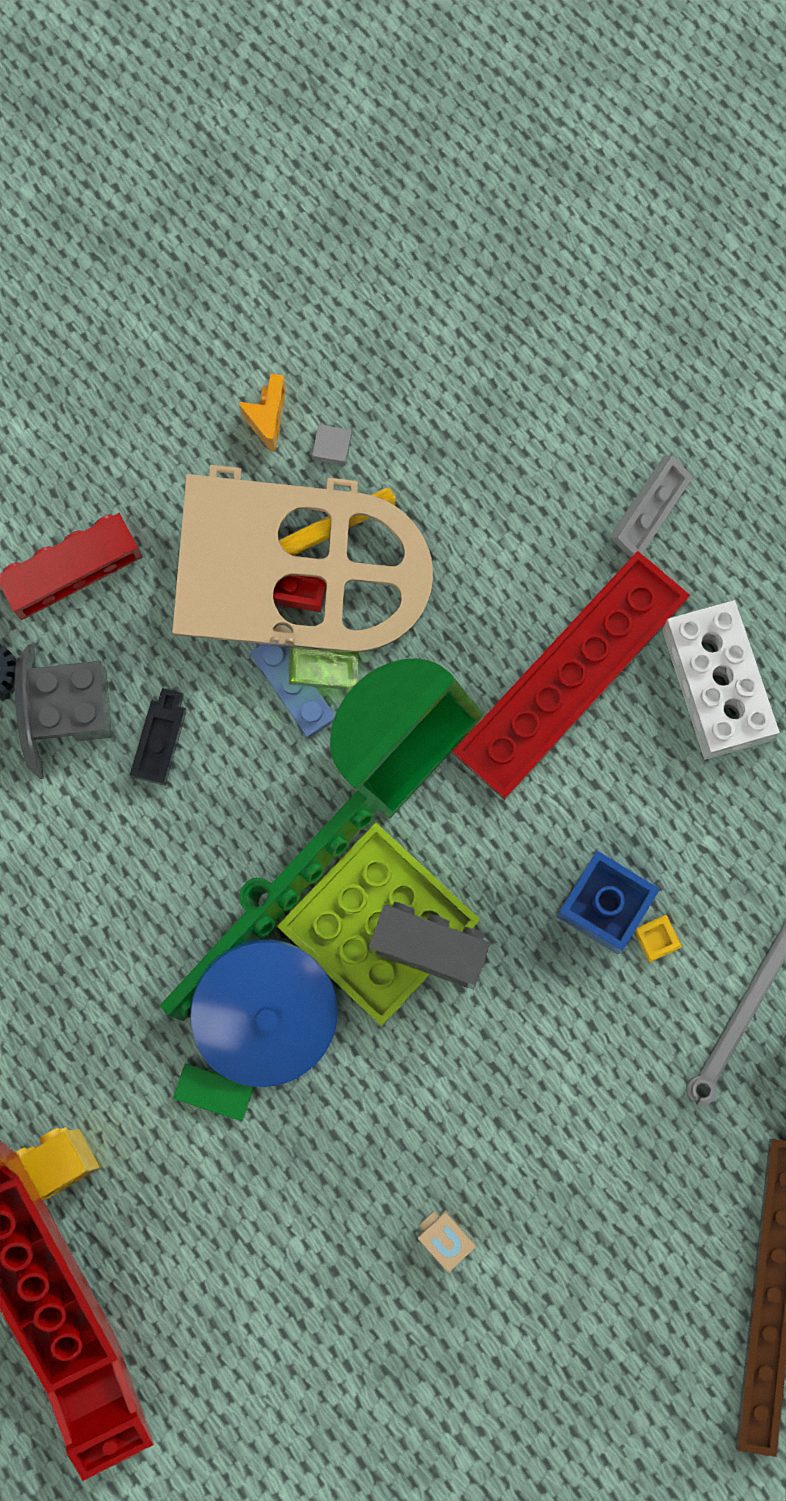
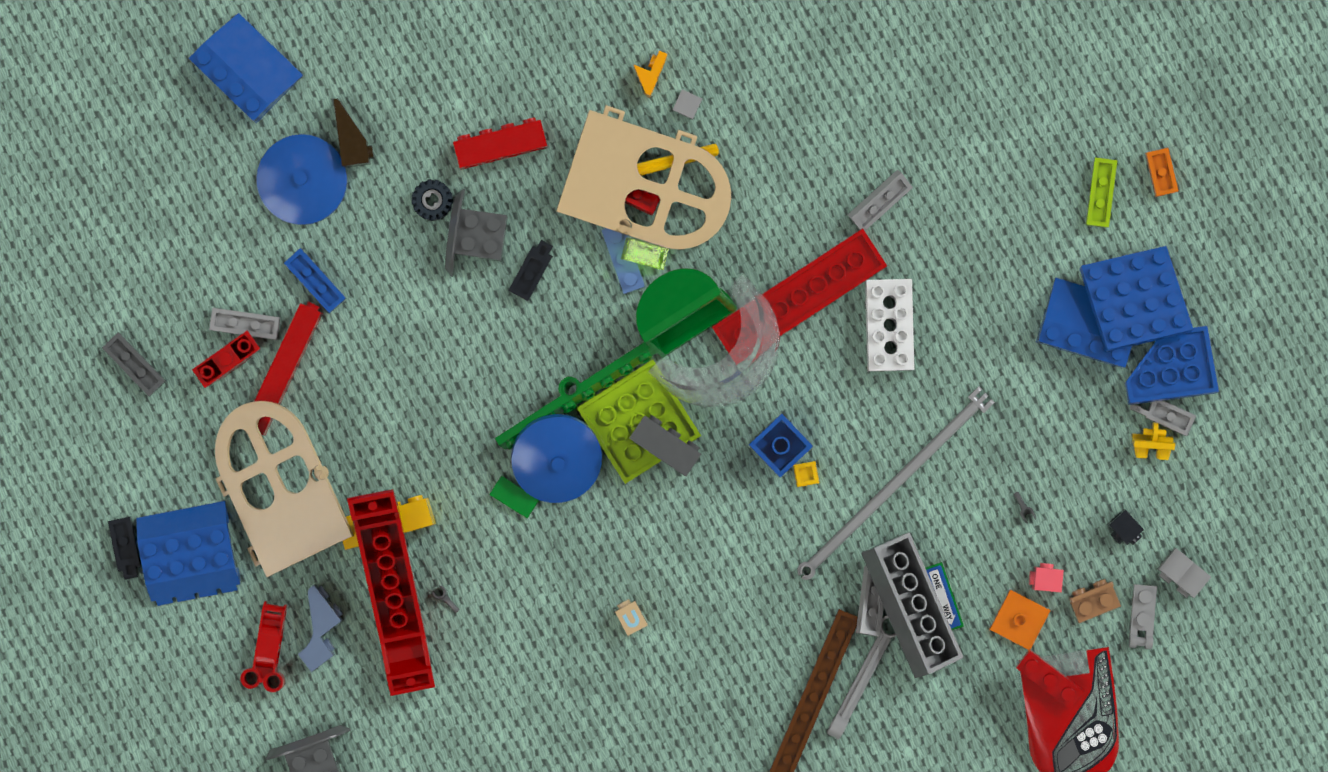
camera: 10 degrees right, 10 degrees up
(142, 1286) = (446, 599): none -> dark grey hand
(511, 806) = (742, 369): none -> clear windscreen

